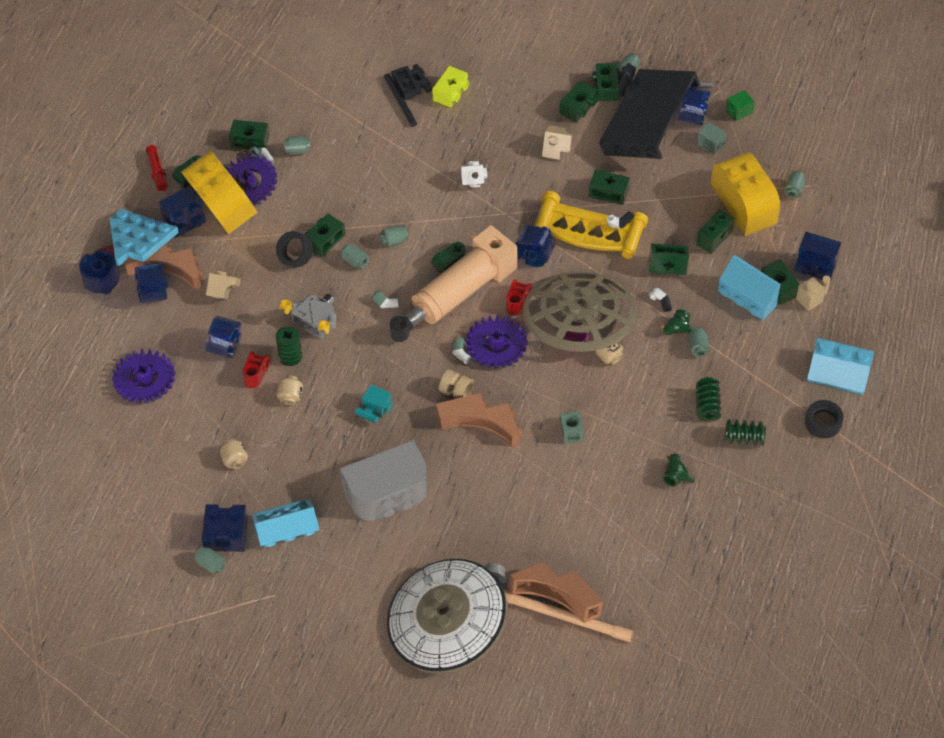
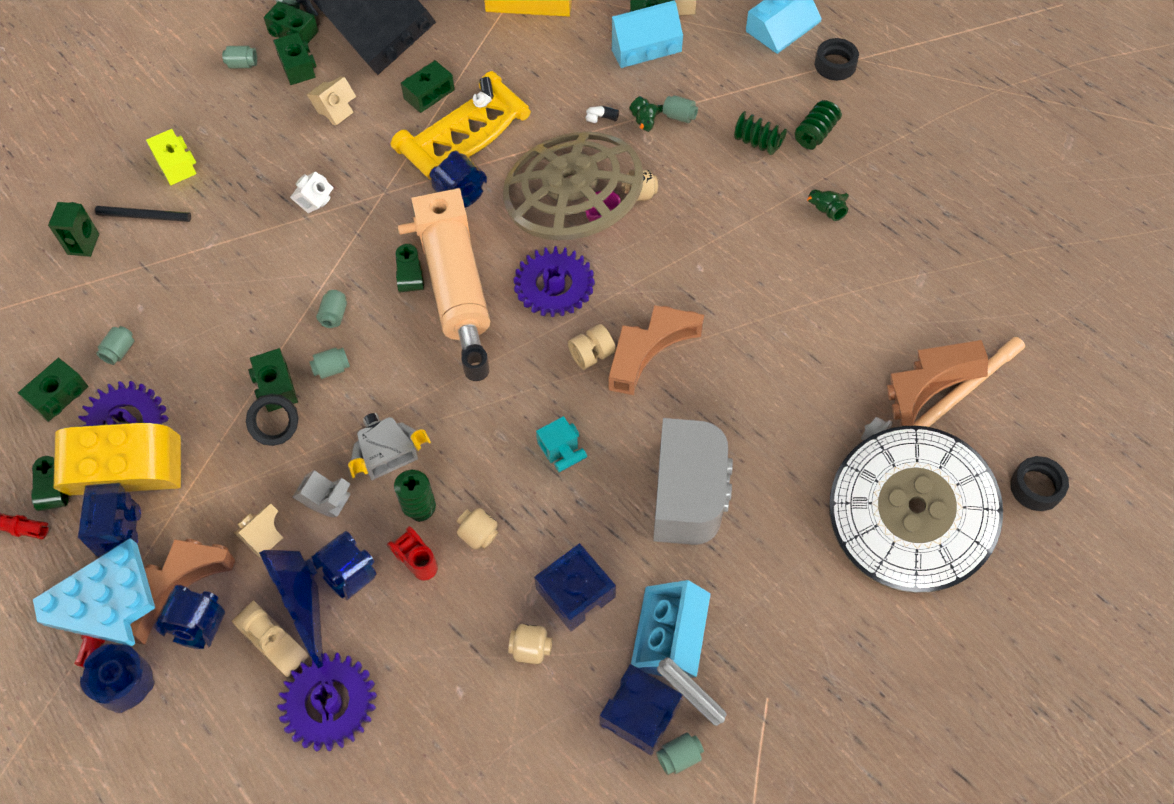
camera: 60 degrees left, 5 degrees up
(162, 328) = (270, 638): none -> tan piece
(189, 326) = (299, 594): none -> clear blue wedge
(248, 545) = (691, 691): none -> light grey axle
(262, 152) = (90, 389): arm -> none
(263, 302) = (322, 494): none -> light grey brick
(280, 456) = (574, 586): none -> clear blue piece
(359, 73) = (74, 229): none -> dark green brick
(383, 302) = (415, 366): arm -> none
(406, 81) = (127, 190): black plate -> none
(457, 350) = (538, 323): arm -> none
(516, 297) = (508, 233): red piece -> none
(518, 672) = (1047, 467): none -> black tyre
(557, 72) = (239, 57): none -> sand green brick
(571, 434) = (717, 266): sand green brick -> none
(668, 259) = (561, 80): dark green brick -> none
(715, 231) = (554, 30): dark green brick -> none

